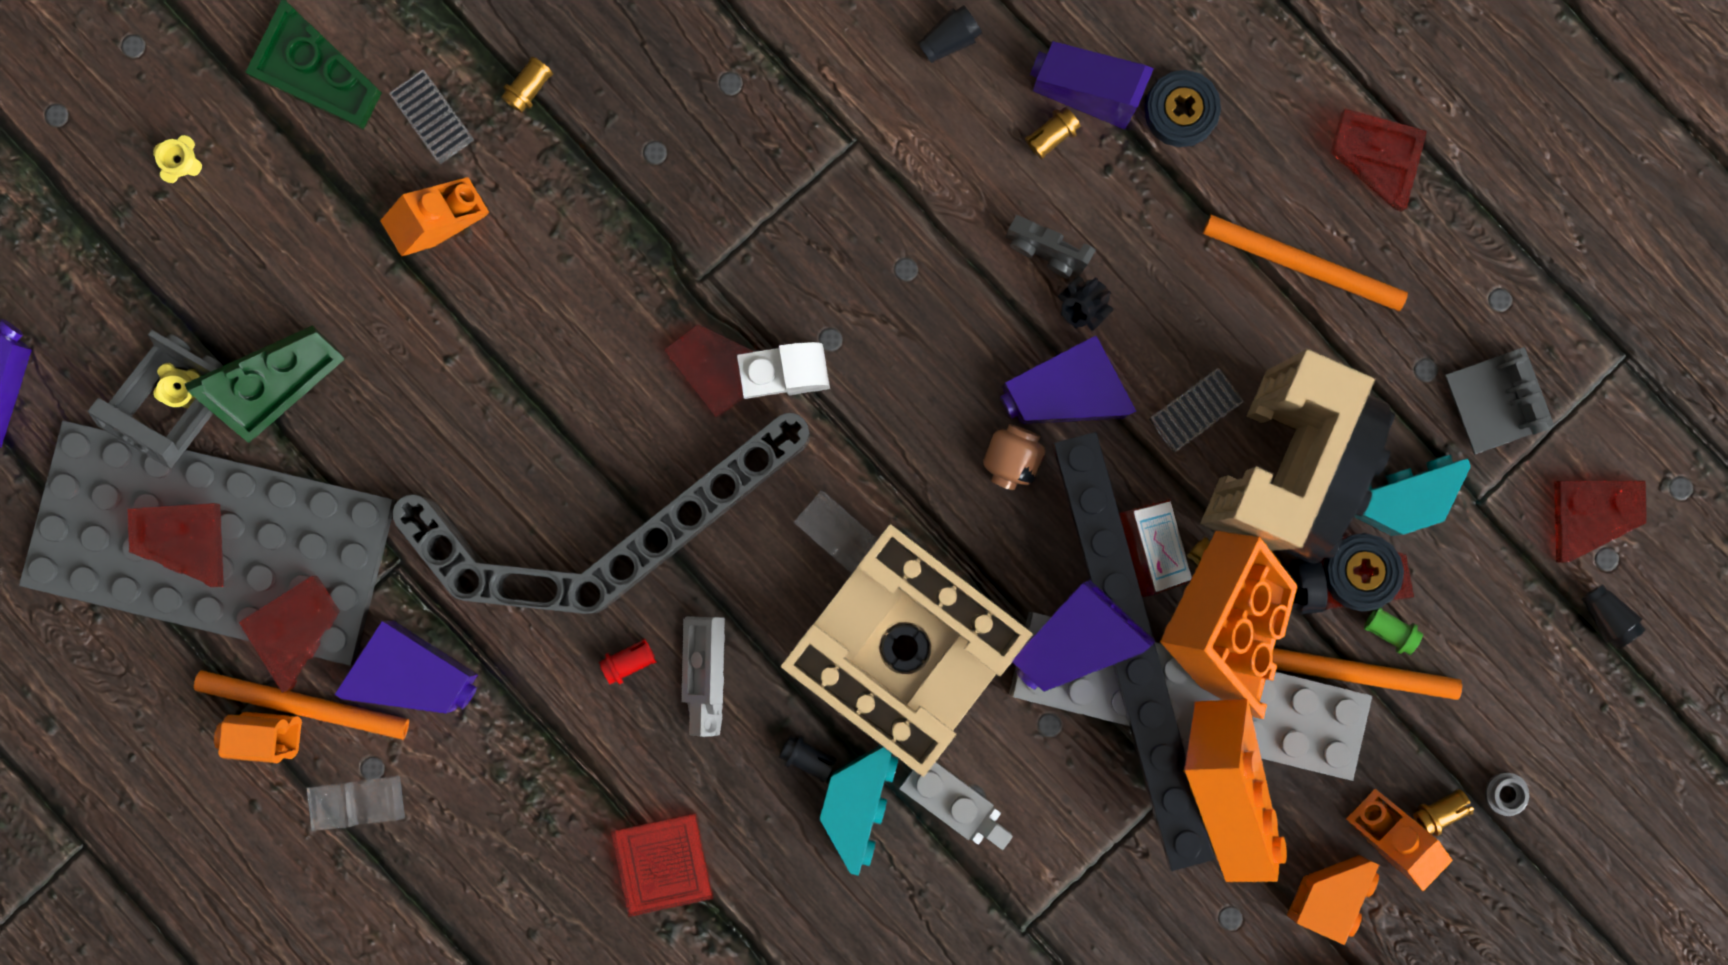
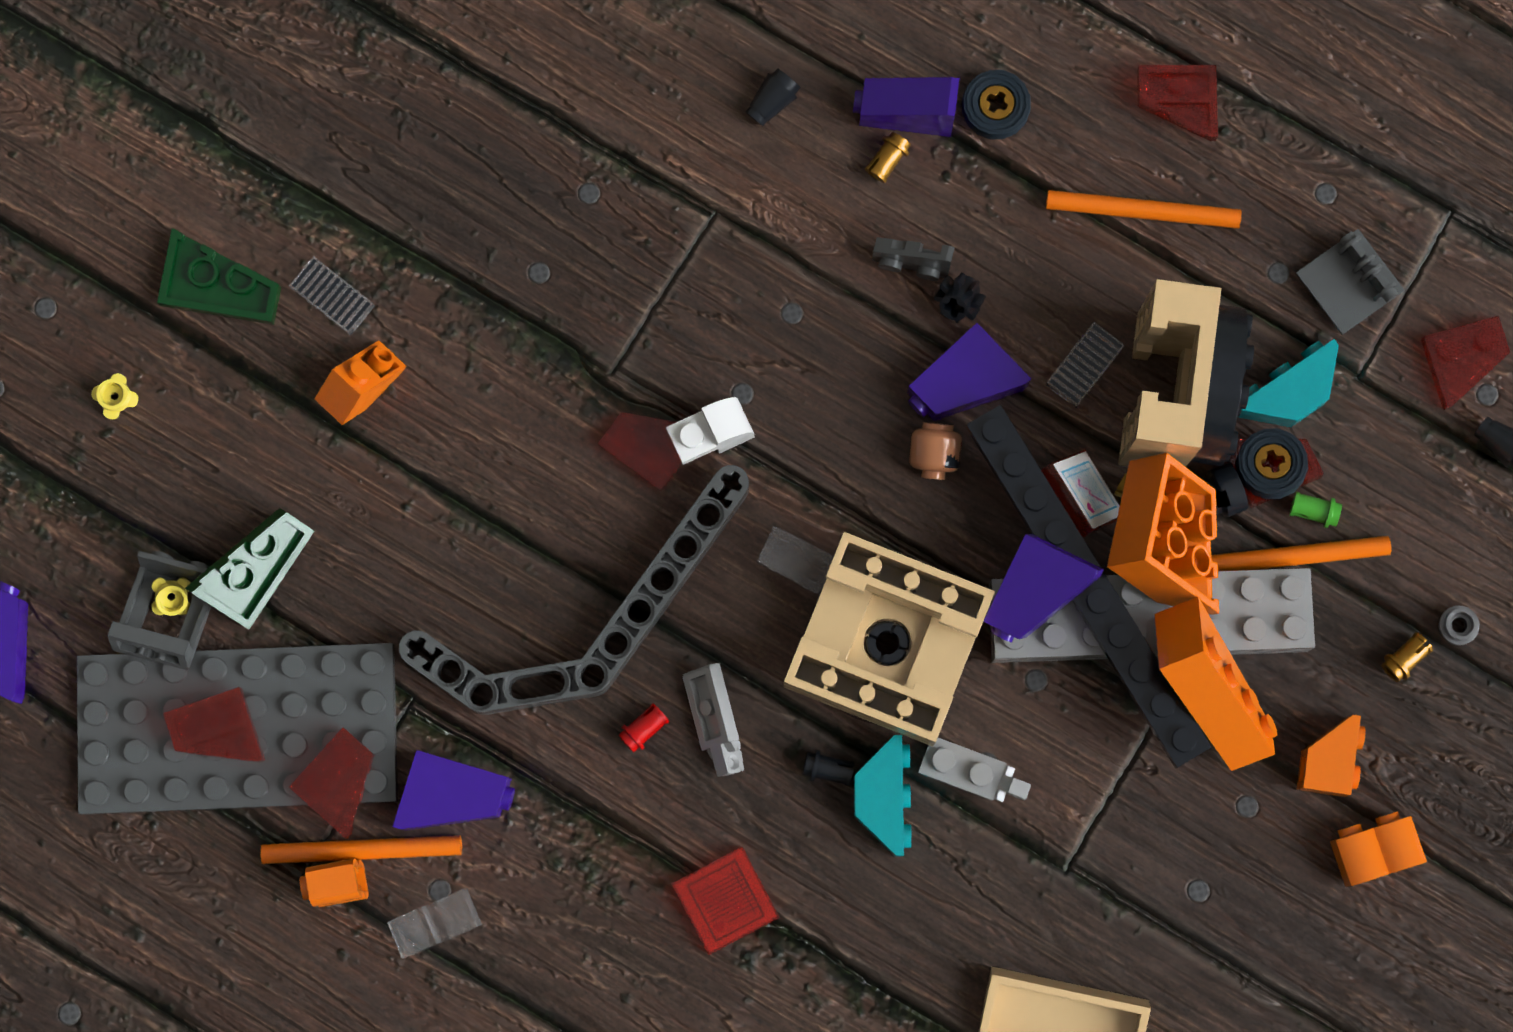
camera: 10 degrees left, 5 degrees down
(526, 85) = (409, 244): pearl gold pin -> none
(1400, 839) = (1375, 691): orange slope -> none

